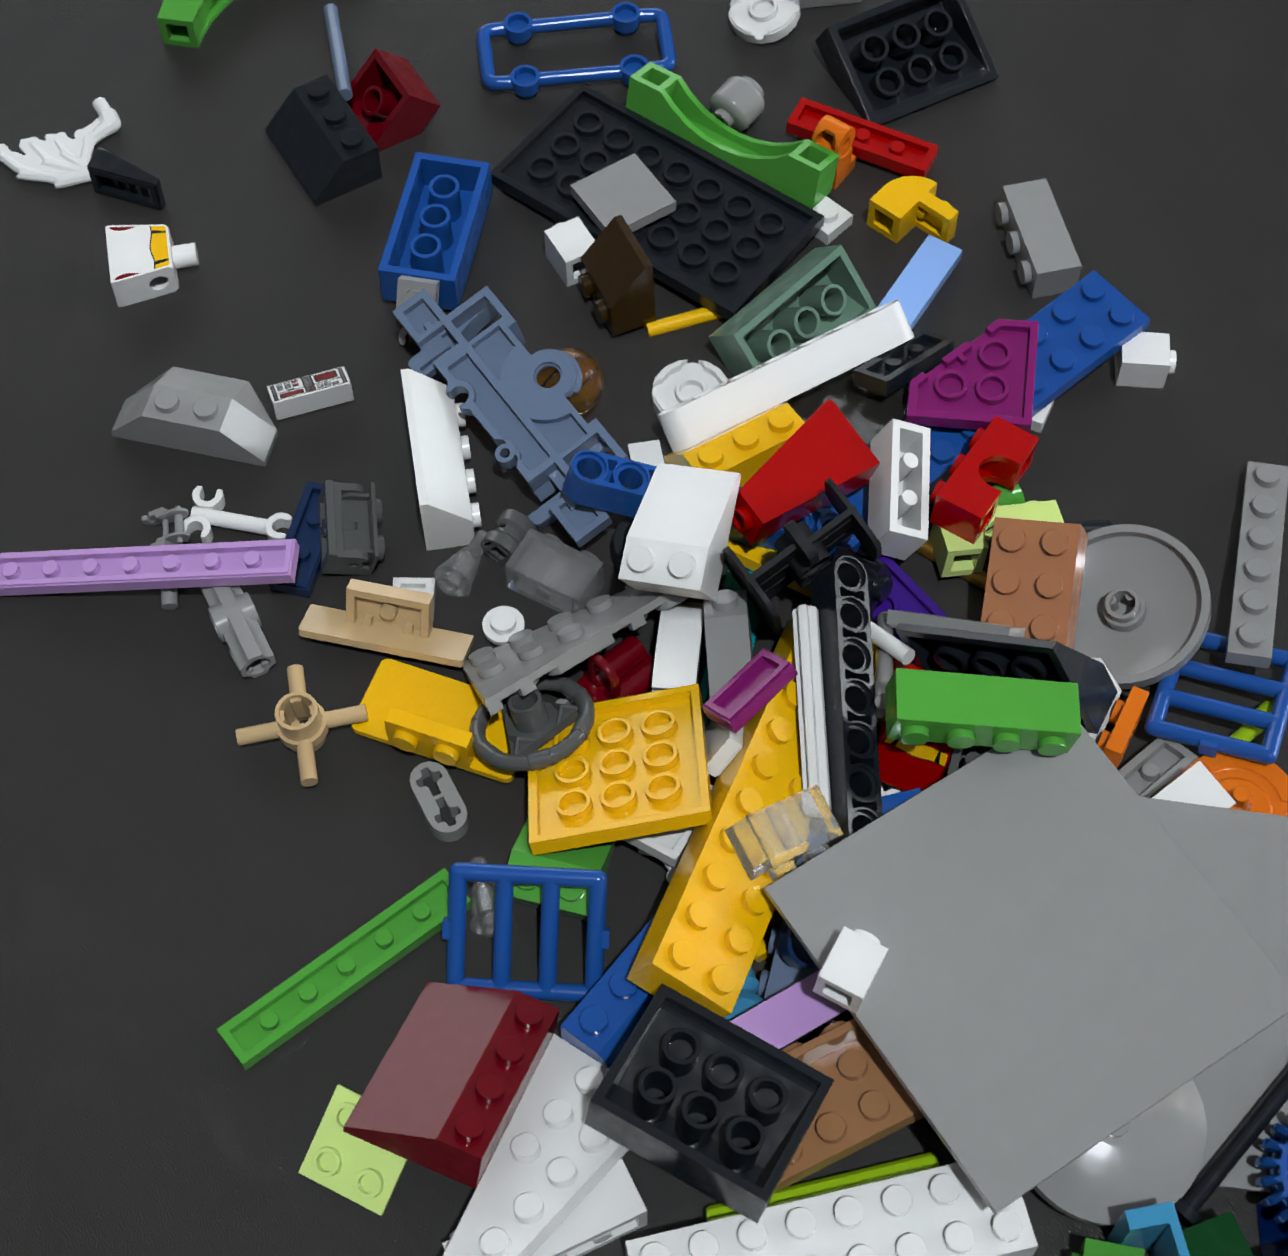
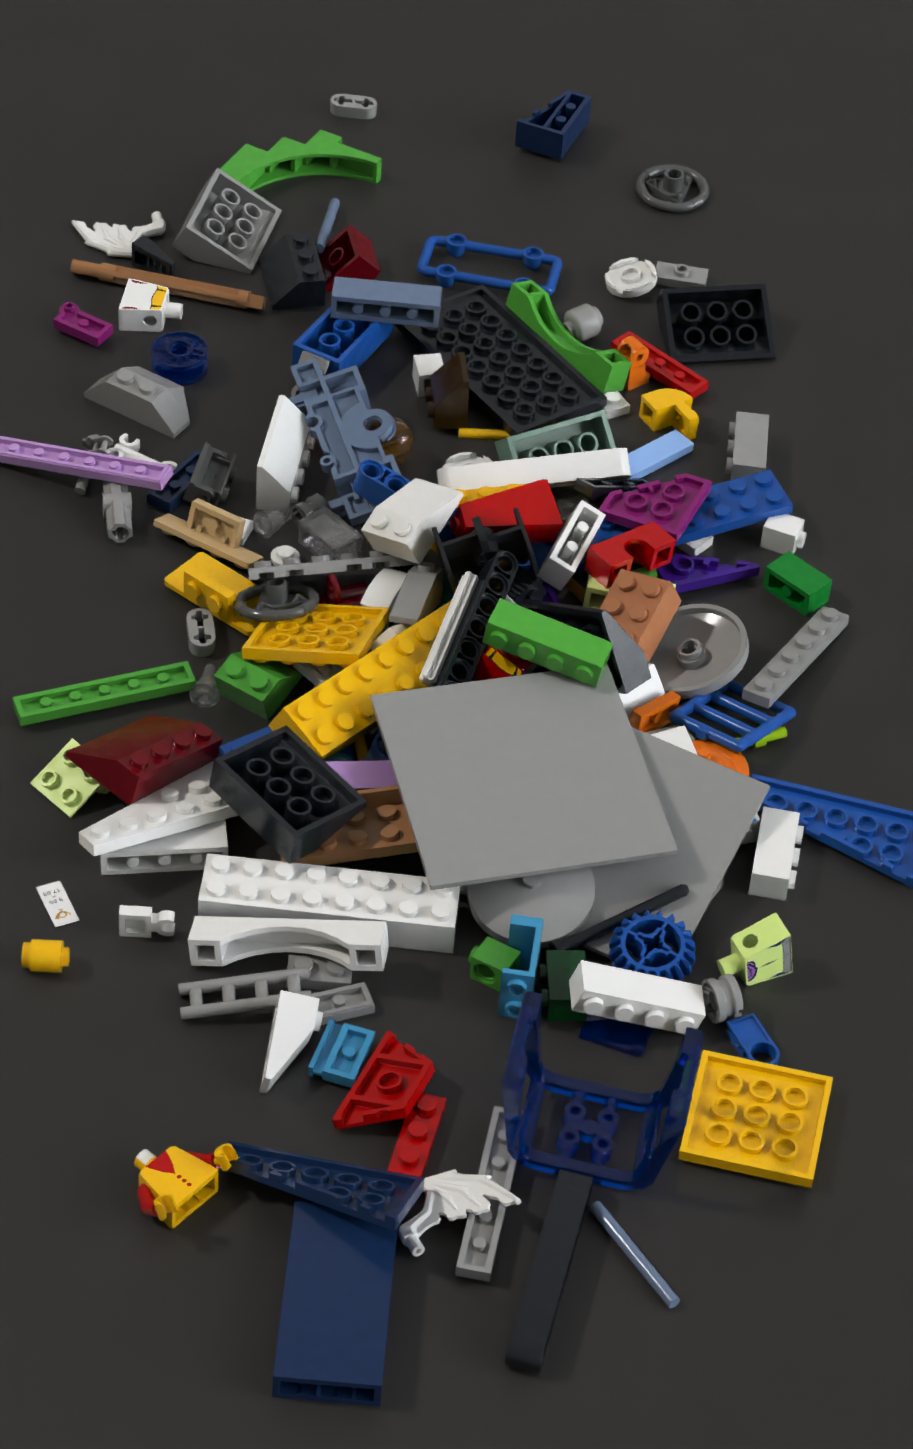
camera: 15 degrees right, 15 degrees down
(66, 318) = (82, 325): none -> magenta hinge
(161, 211) = (176, 285): none -> medium nougat piece
(202, 92) = (227, 225): none -> light grey slope
(224, 333) = (180, 357): none -> clear blue wheel
(298, 736) = (133, 568): tan bar -> none
(310, 393) = (220, 407): white slope -> none
(481, 163) = (386, 302): none -> sand blue brick
(551, 880) = (218, 660): blue bar -> none
(623, 190) = (481, 349): light grey tile -> none
(749, 690) = (415, 608): magenta tile -> none
(783, 833) = (395, 672): clear brick -> none
(850, 968) = (399, 741): white brick -> none
(1070, 458) = (701, 572): none -> dark purple wing
(1200, 436) = (797, 583): none -> green brick

